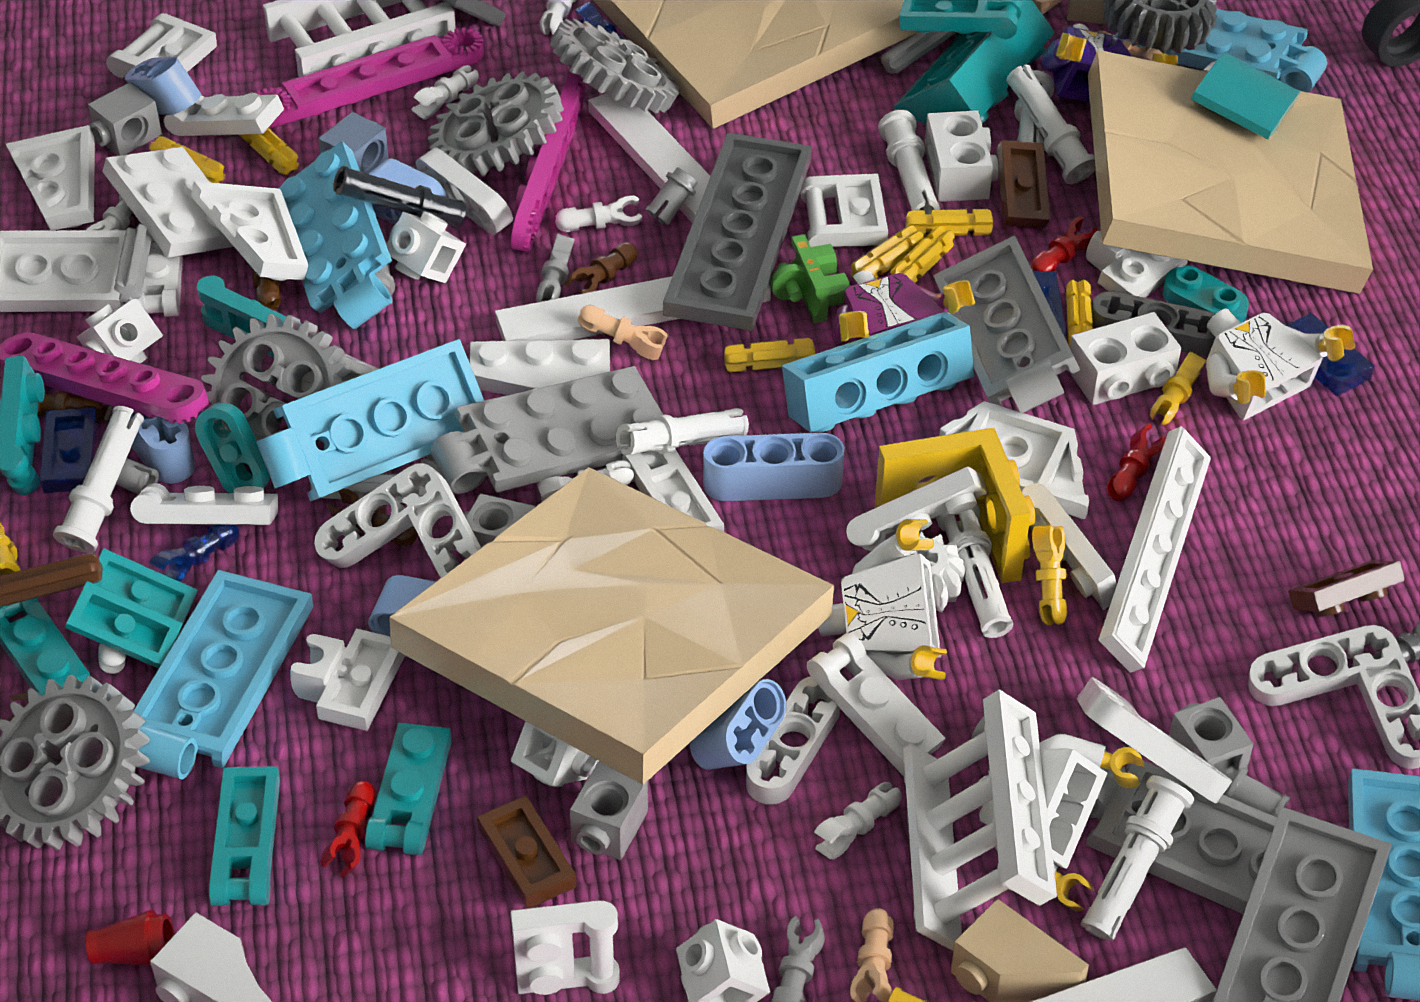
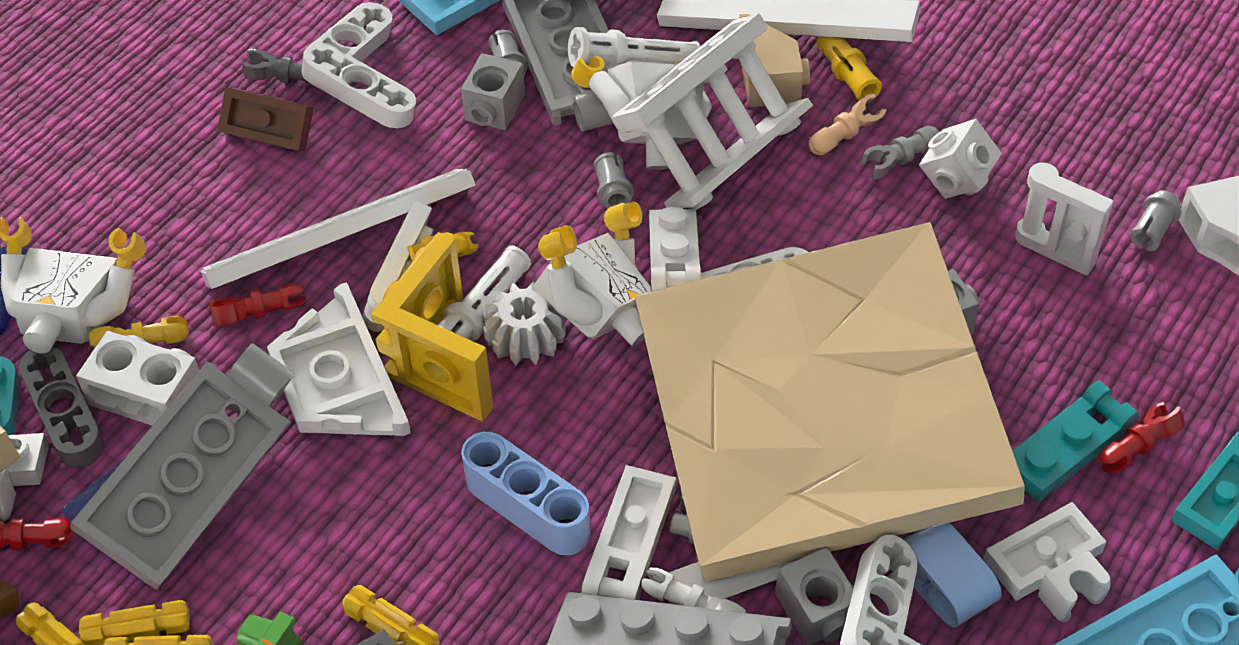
camera: 135 degrees left, 5 degrees up
(526, 852) = (1021, 329): reddish brown plate -> none
(668, 433) = (590, 563): white pin -> none
(857, 818) = (787, 204): white piece -> none
(890, 302) = (259, 559): torso -> none
(911, 362) = (344, 500): medium azure brick -> none
(951, 494) = (463, 313): white plate -> none
(1078, 307) = (101, 458): yellow axle -> none
(1123, 721) = (562, 85): white beam -> none

